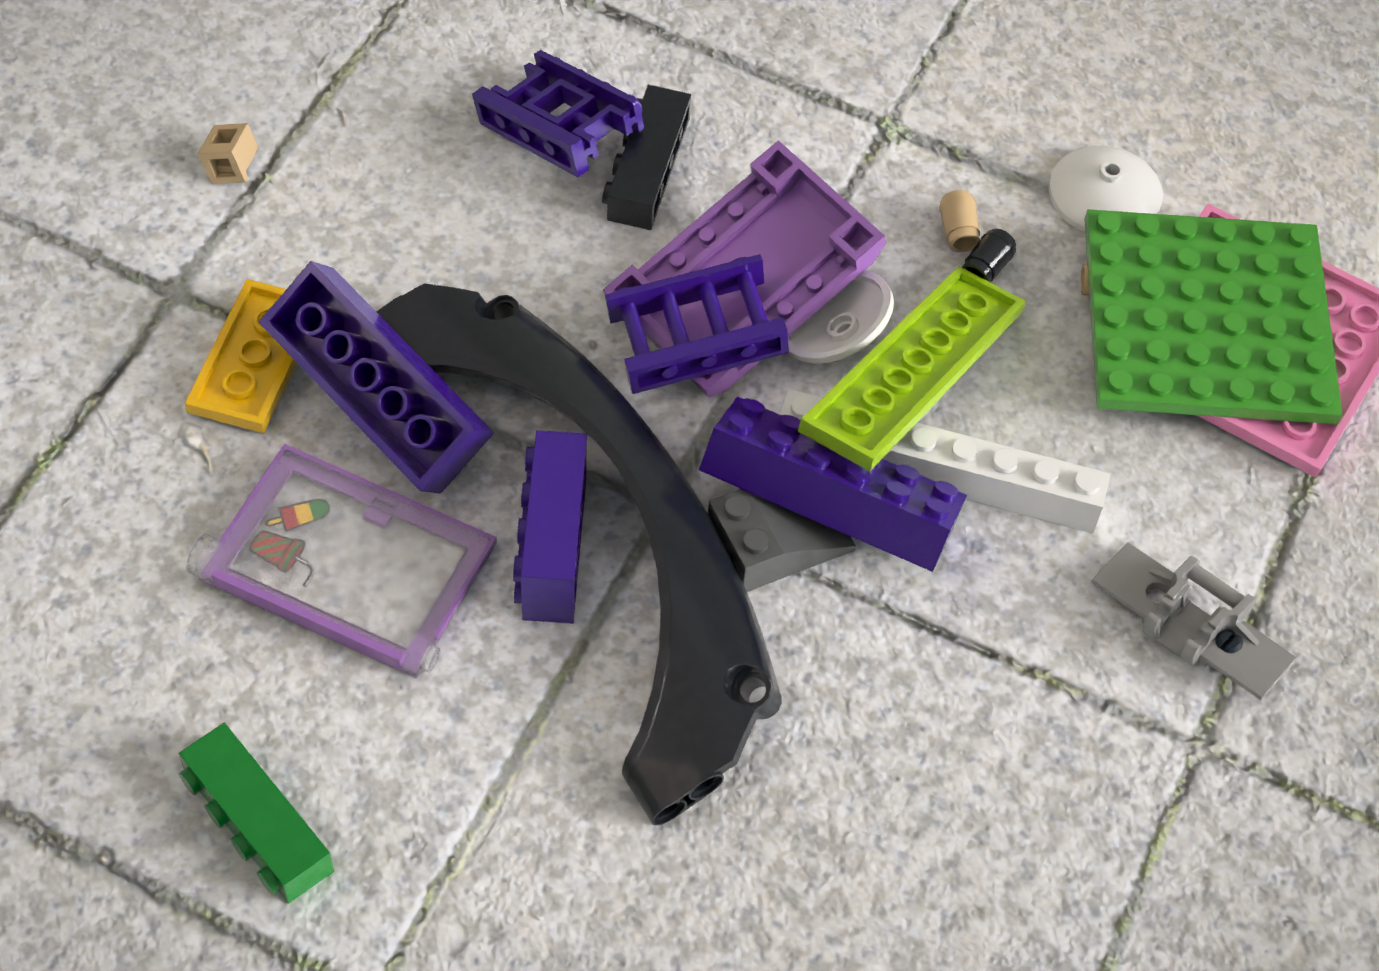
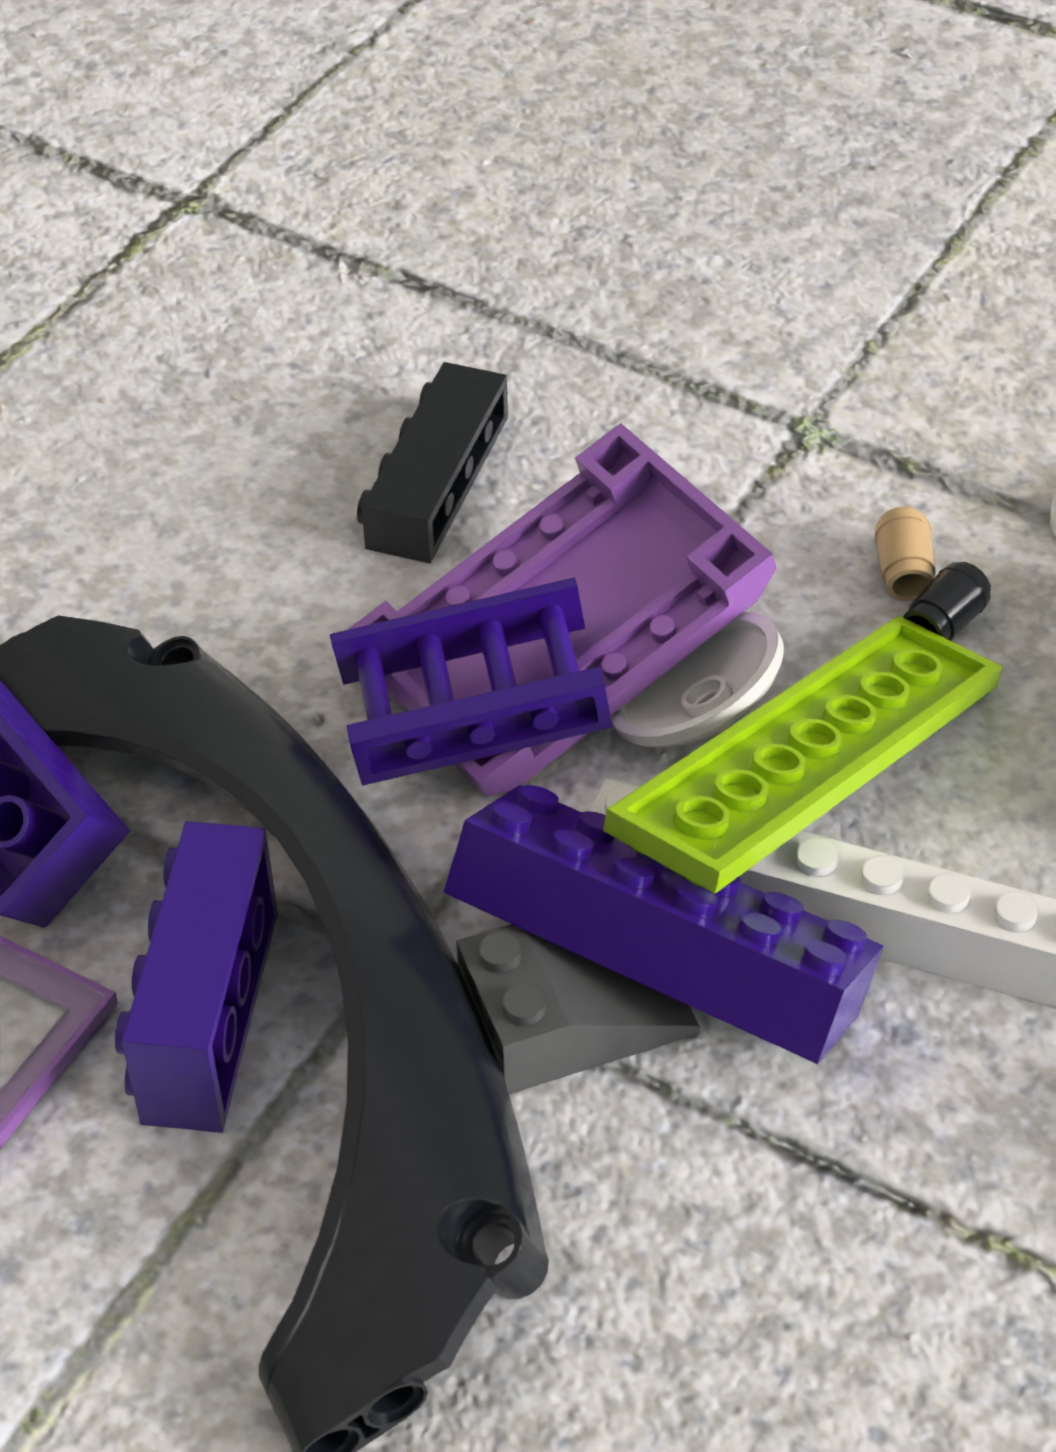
camera: 10 degrees right, 10 degrees down
(572, 136) = (306, 396): dark purple fence -> none

